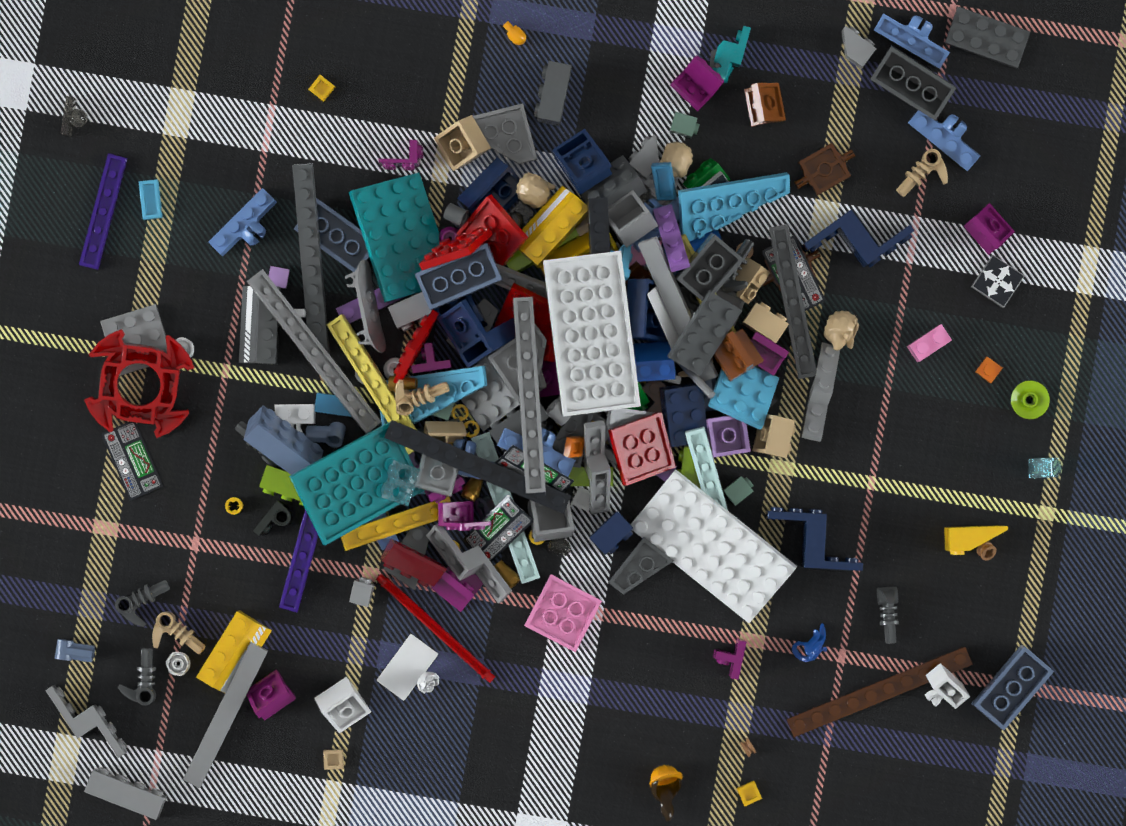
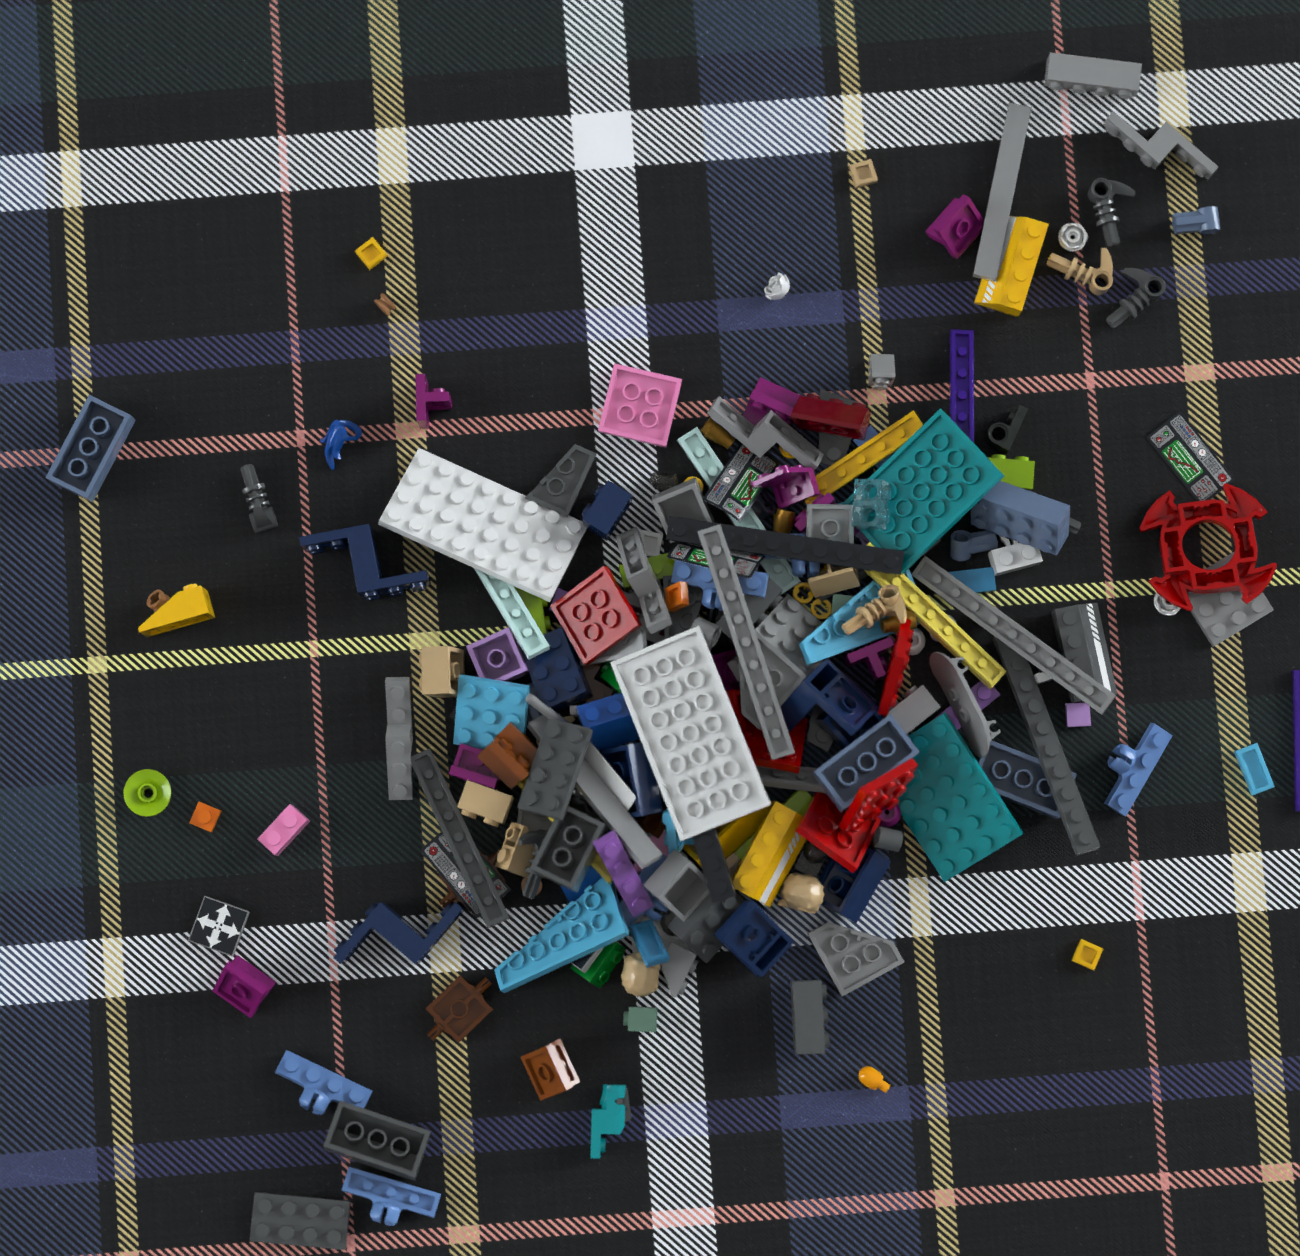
camera: 165 degrees right, 5 degrees down
(234, 499) = (1054, 427): yellow bush -> none
(342, 705) = (870, 236): white slope -> none
(407, 666) = (805, 299): white sticker -> none
(415, 155) = (955, 902): magenta bracket -> none
(435, 628) = (784, 351): red piece -> none
(462, 143) = (902, 928): tan brick -> none
(665, 786) = (471, 235): piece -> none
(697, 83) = (638, 1073): magenta bracket -> none
(738, 490) = (469, 599): sand green brick -> none
(841, 329) = (392, 819): tan animal -> none
(856, 48) = (456, 1165): light grey slope -> none
(875, 693) = (246, 407): reddish brown plate -> none
(922, 168) = (344, 1033): tan piece -> none
(946, 687) = (169, 429): white brick -> none
(1044, 467) = (111, 714): clear light blue brick -> none

